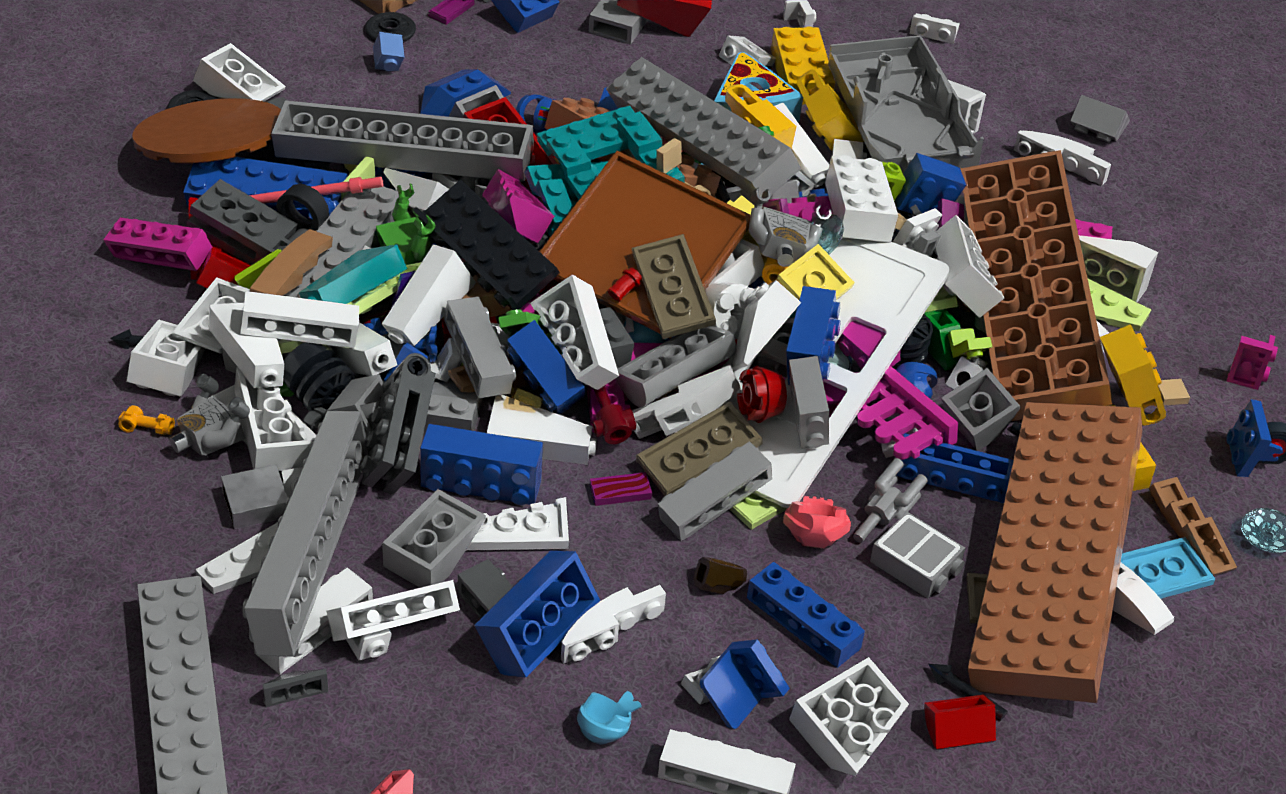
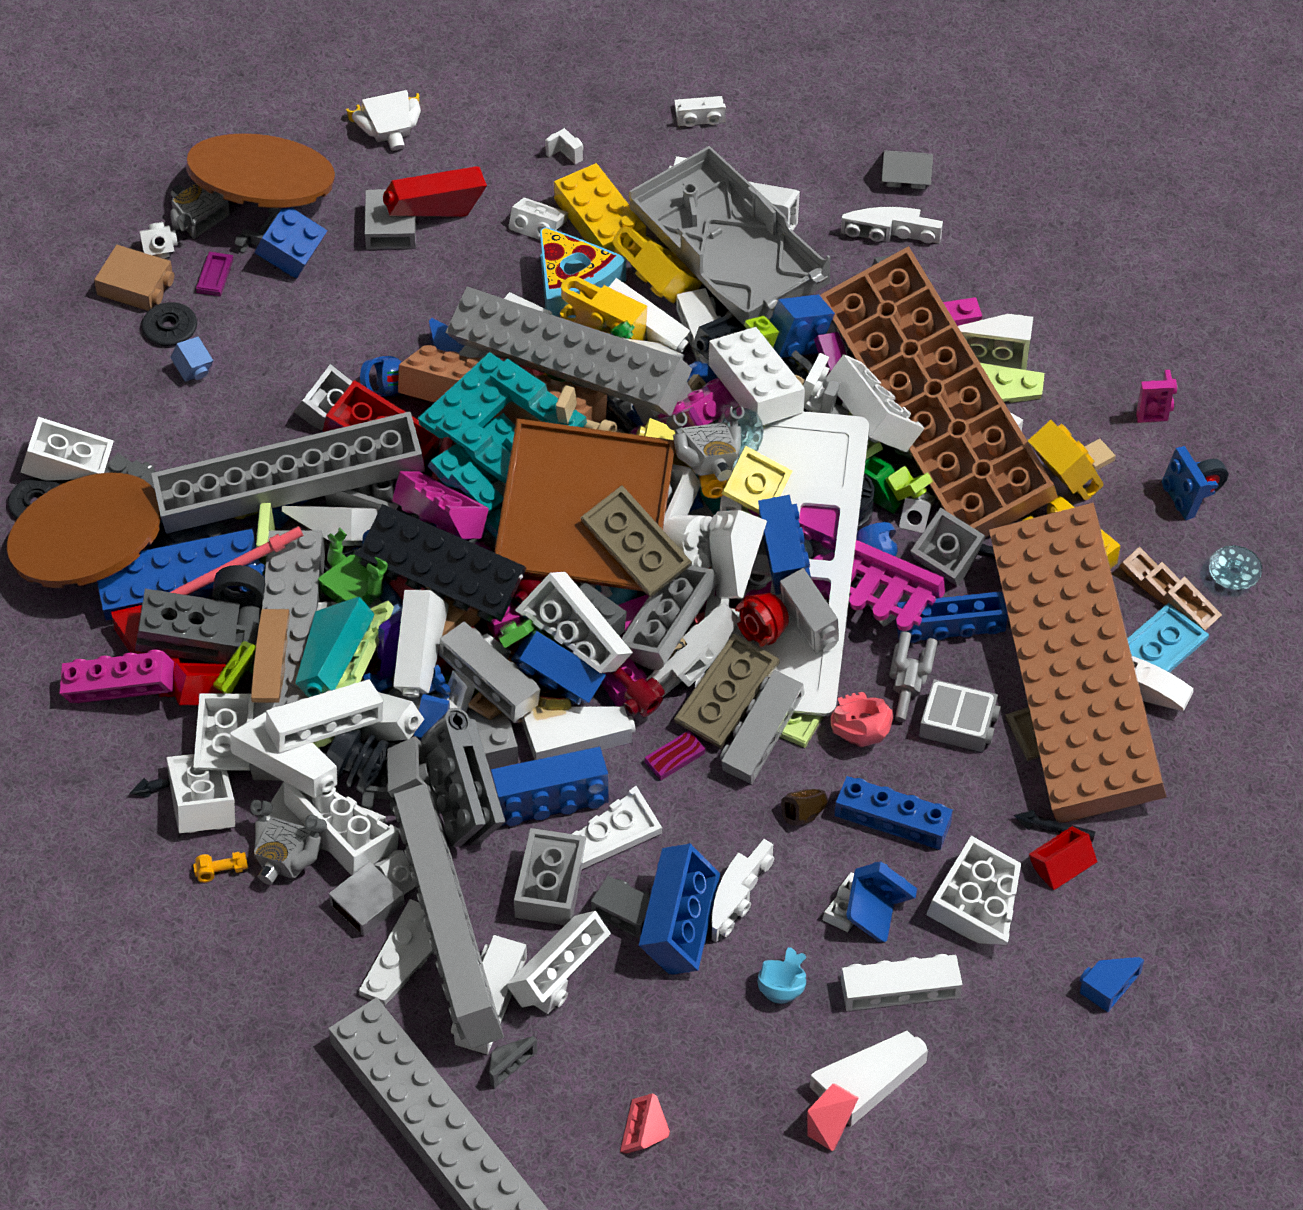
camera: 20 degrees left, 10 degrees up
(442, 94) = (286, 382): blue wedge -> none
(630, 279) = (591, 556): red pin -> none

